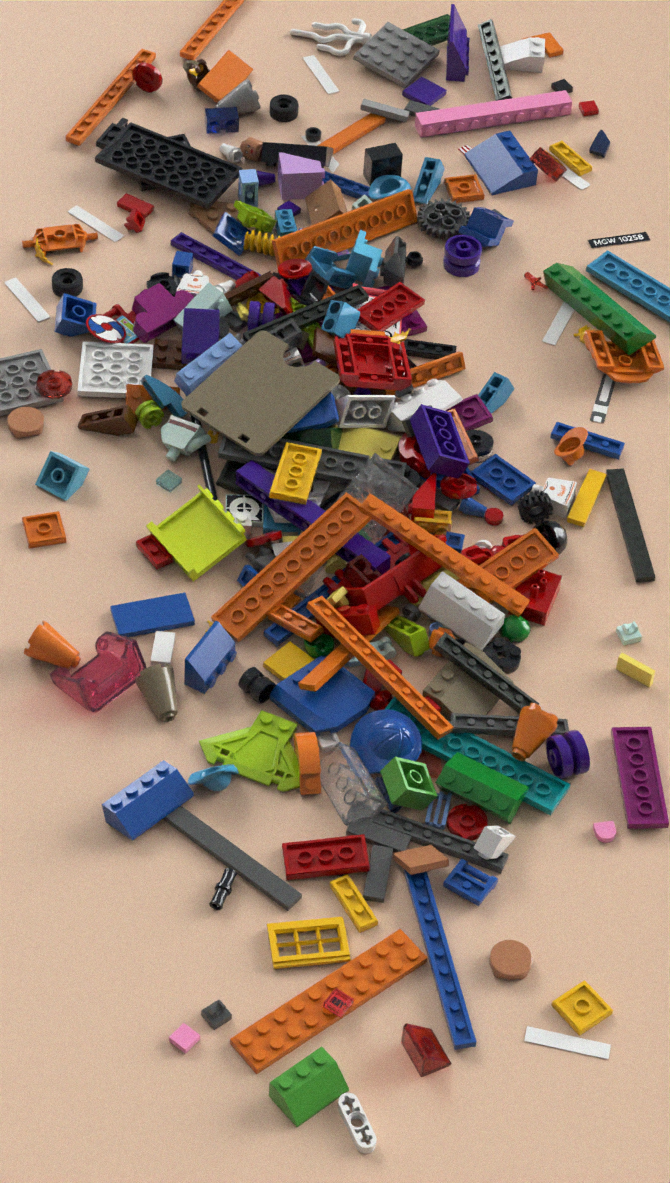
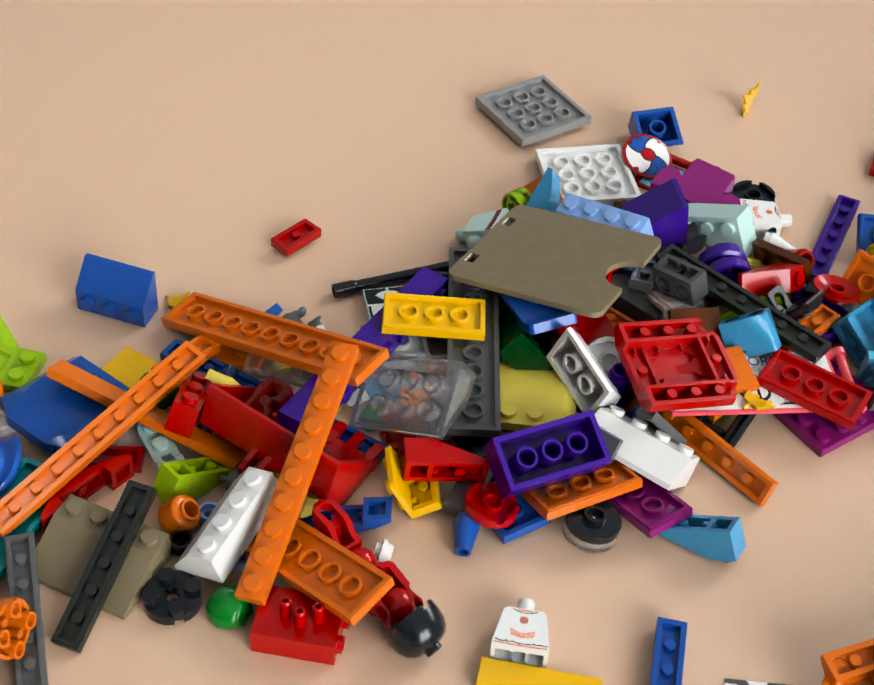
camera: 80 degrees right, 5 degrees down
(25, 422) = (473, 122): nougat tile -> none
(27, 299) = (685, 100): white sticker -> none
(44, 529) = (313, 156): orange tile -> none
(52, 647) = (122, 170): orange cone -> none
(54, 384) = (535, 129): clear red tile -> none
(62, 475) = (398, 154): medium azure slope -> none
(67, 275) = (713, 125): black tyre -> none
(72, 237) = (786, 113): orange plate -> none
(96, 223) = (834, 140): white sticker -> none
(105, 674) = (68, 209): clear pink windscreen -> none
(111, 421) = (496, 181): reddish brown slope -> none
(135, 221) = (852, 162): red tile -> none
(152, 615) = (195, 250): blue tile -> none
(159, 690) = (57, 260): dark tan cone -> none
(162, 648) = (151, 261): white tile -> none
(168, 480) = (422, 239): clear light blue tile -> none
(182, 264) = (800, 205): blue brick -> none
(199, 534) = (319, 259): neon yellow panel -> none
(244, 519) = (354, 300): white brick -> none
(256, 685) = (81, 339): black wheel -> none
(264, 538) = (333, 319): red tile -> none
(428, 349) = (778, 460): black tile -> none
(493, 516) = (459, 564): red tile -> none
(503, 479) = (536, 566): blue plate -> none
(527, 504) = (478, 603): black tyre -> none
(571, 445) = (633, 646): orange piece -> none

